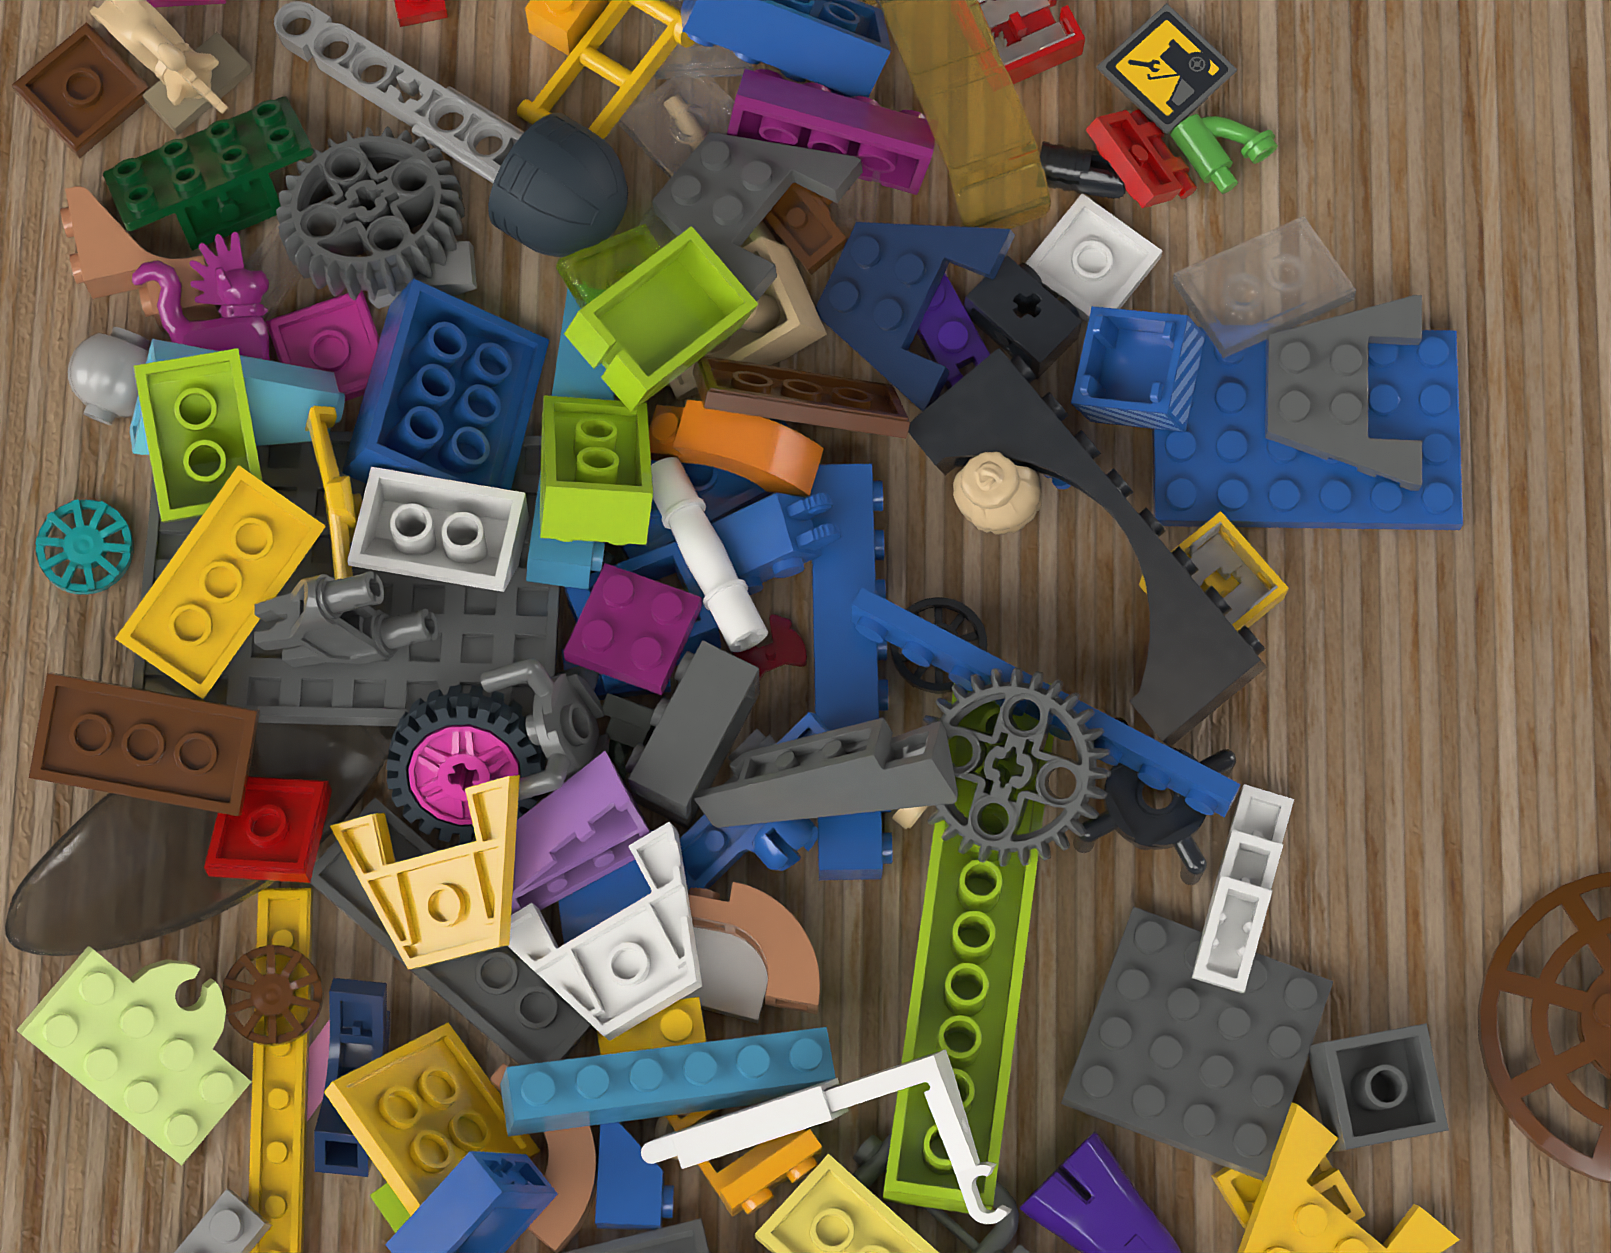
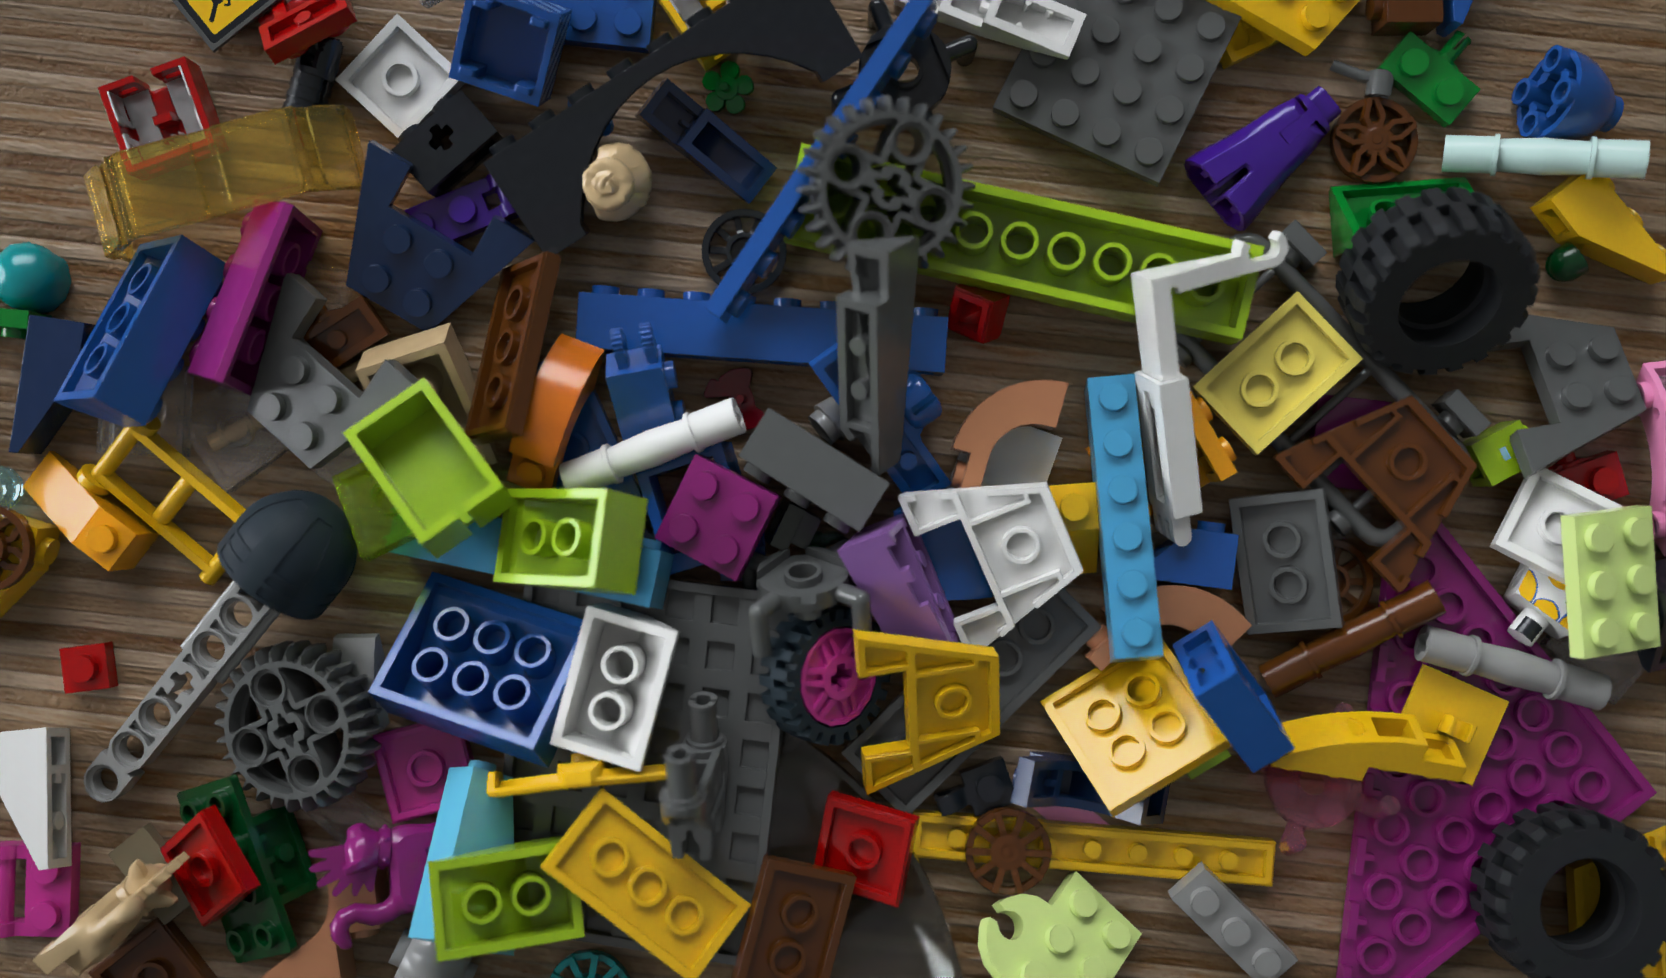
camera: 85 degrees left, 15 degrees up
(206, 142) = (217, 870): none -> red tile
(339, 958) = (983, 787): none -> black plate
(893, 911) = (977, 313): none -> red slope
(1057, 590) = (705, 140): none -> dark blue slope
(1122, 611) = (727, 88): none -> green plant

